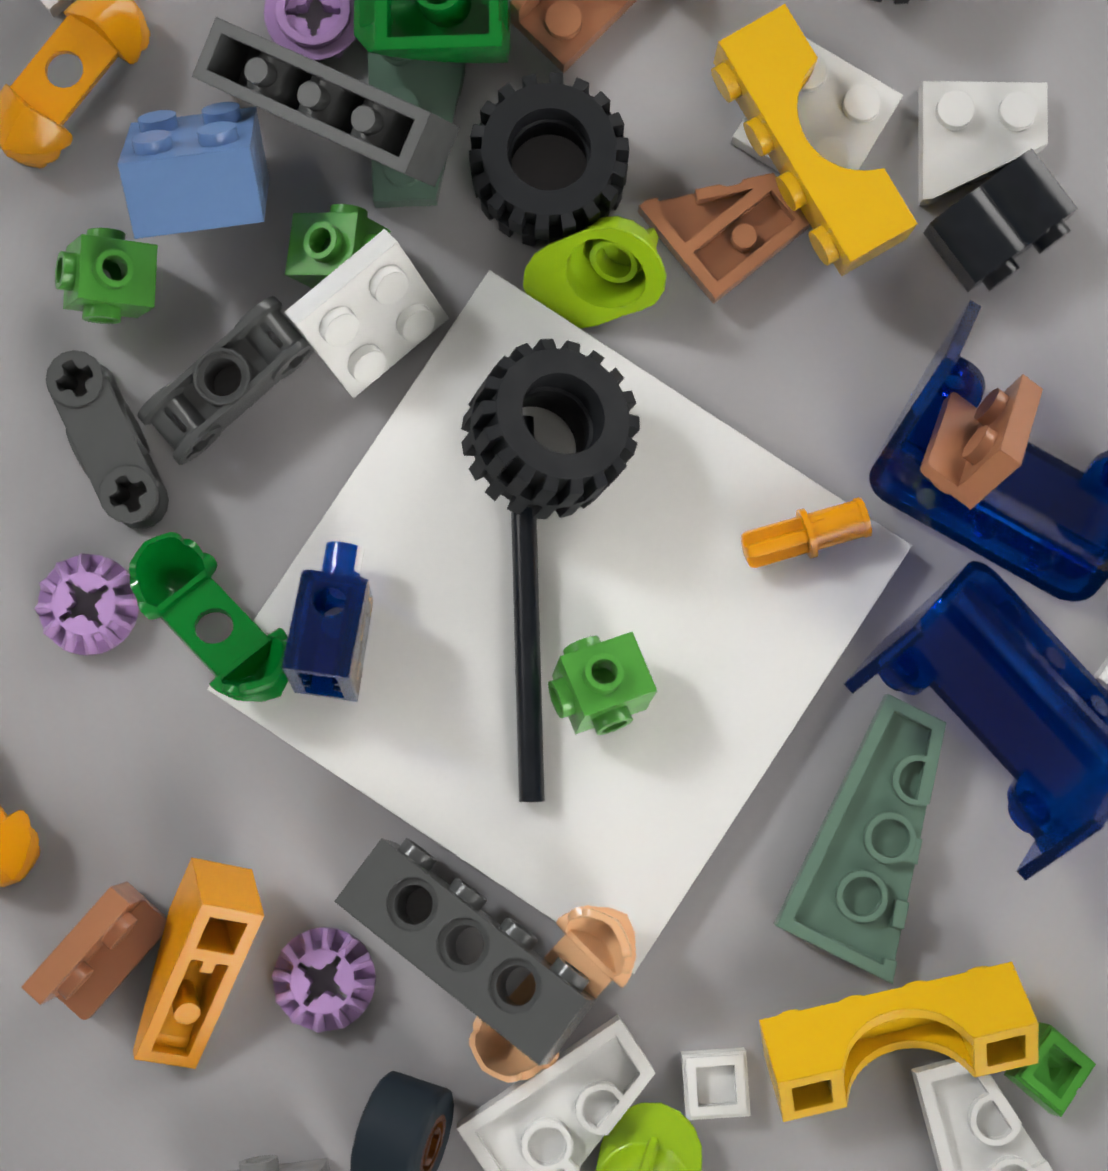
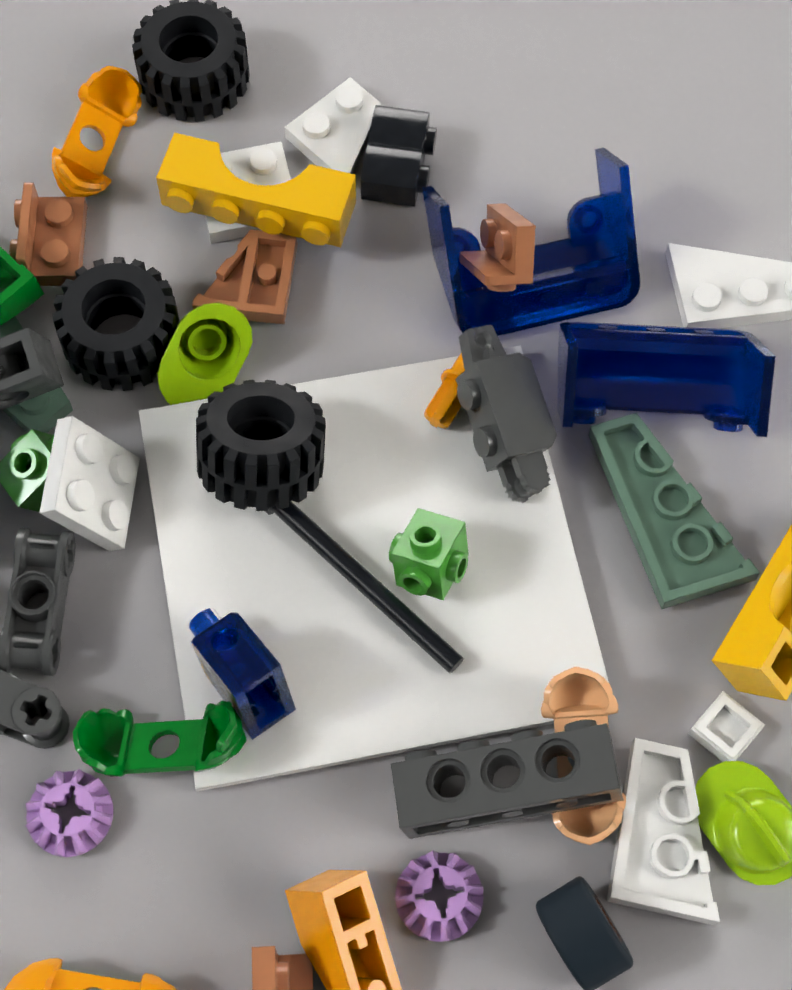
camera: 45 degrees left, 20 degrees down
(812, 612) = (505, 412): none -> dark grey hinge

